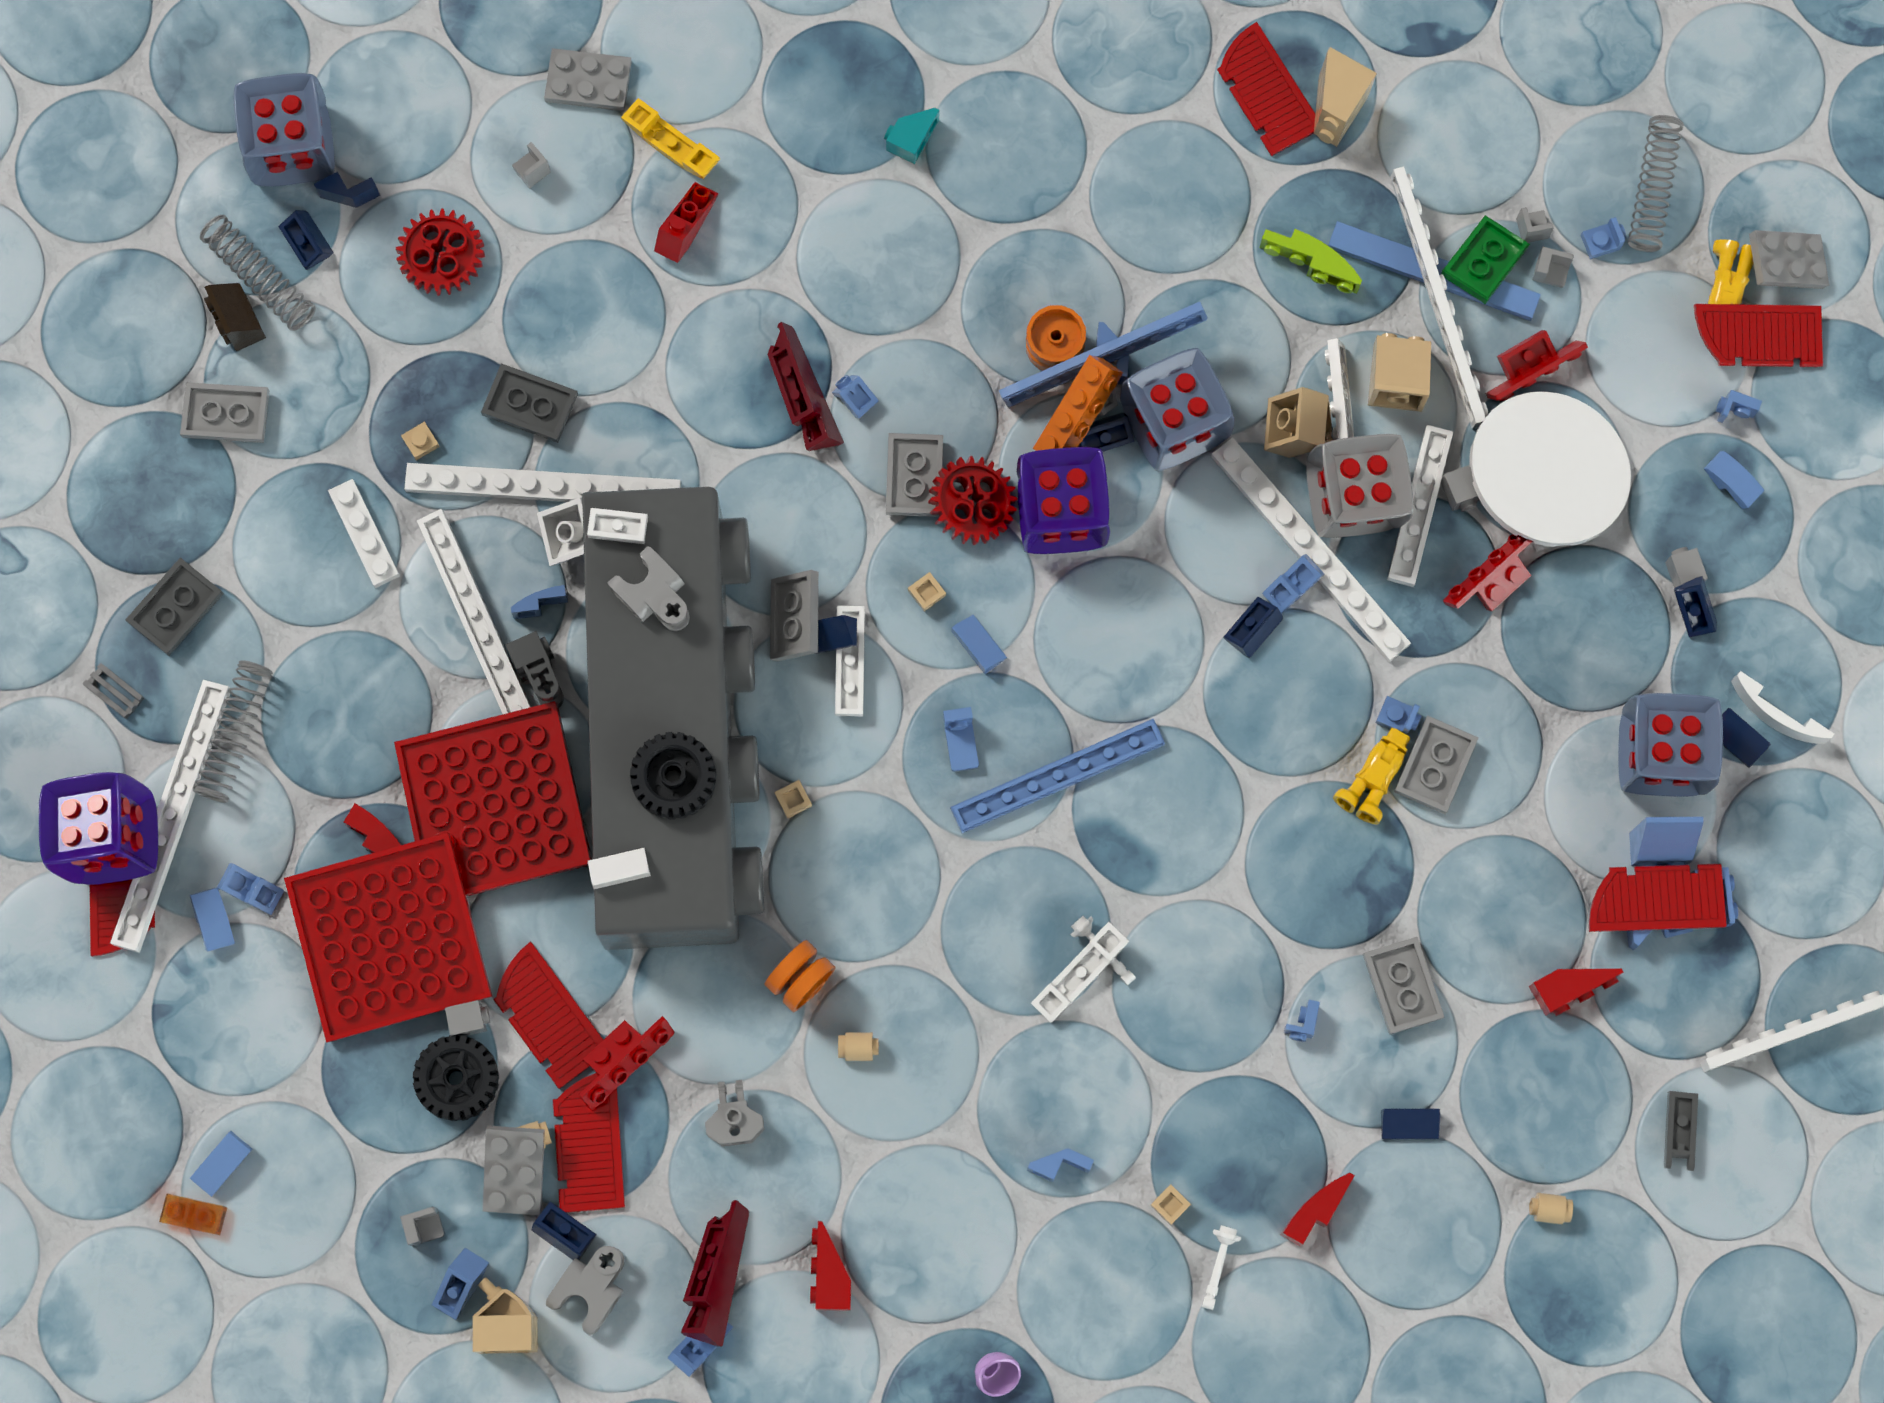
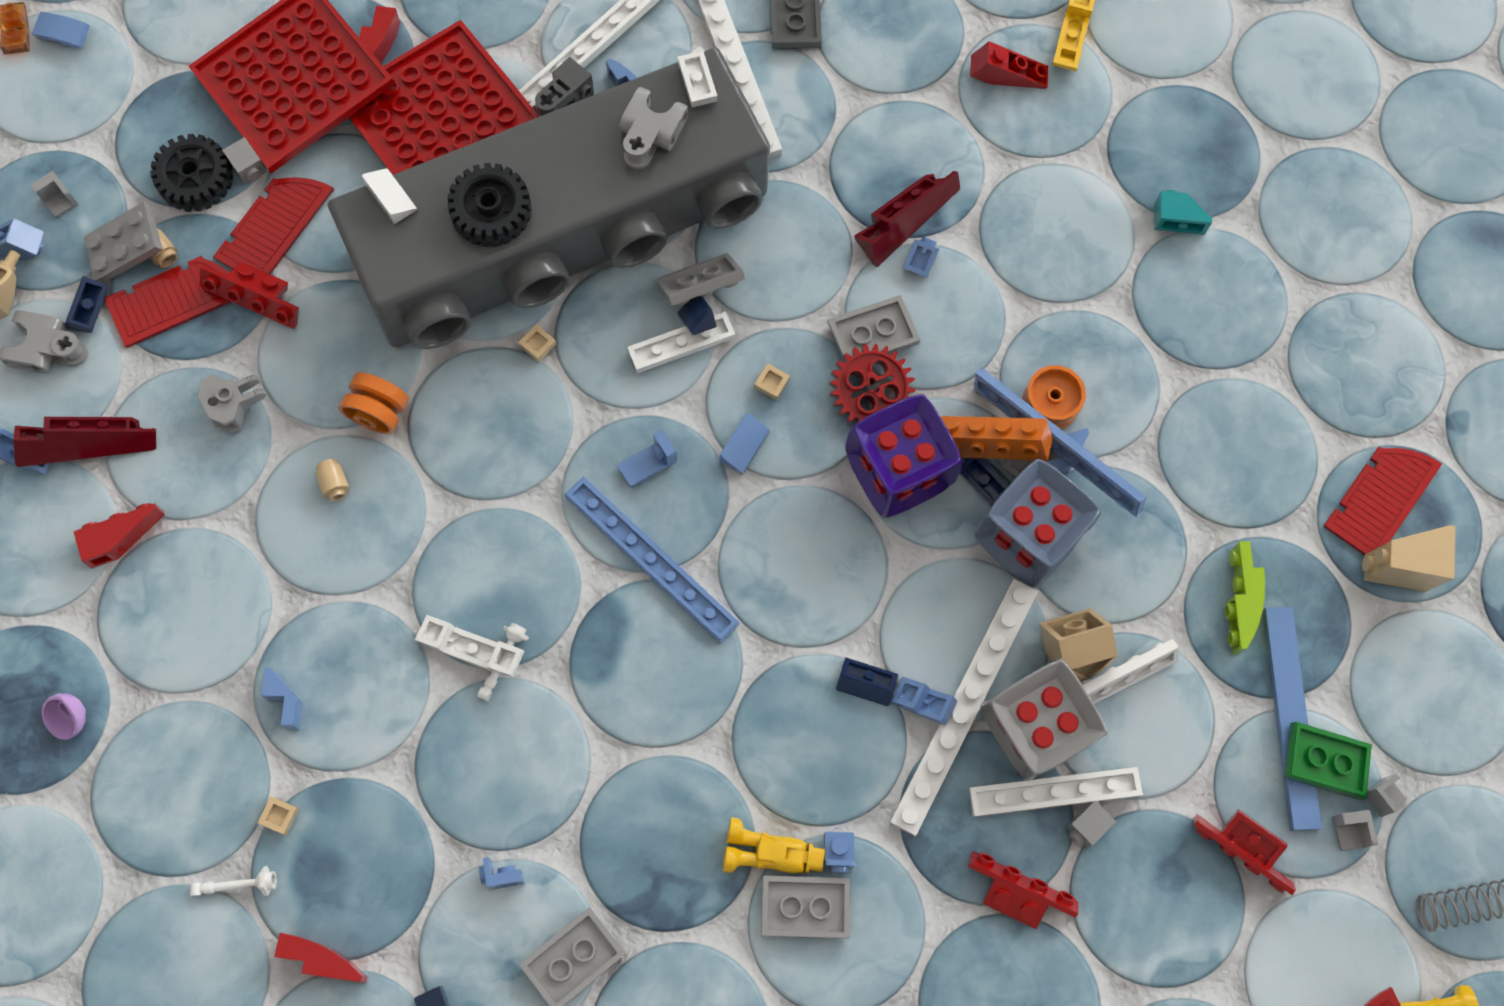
camera: 65 degrees right, 5 degrees down
(1400, 372) = (1175, 720): tan slope -> none
(1435, 286) = (1259, 737): white plate -> none
(1550, 469) = (1151, 905): white tile -> none
(1604, 238) = (1409, 871): medium blue bracket -> none

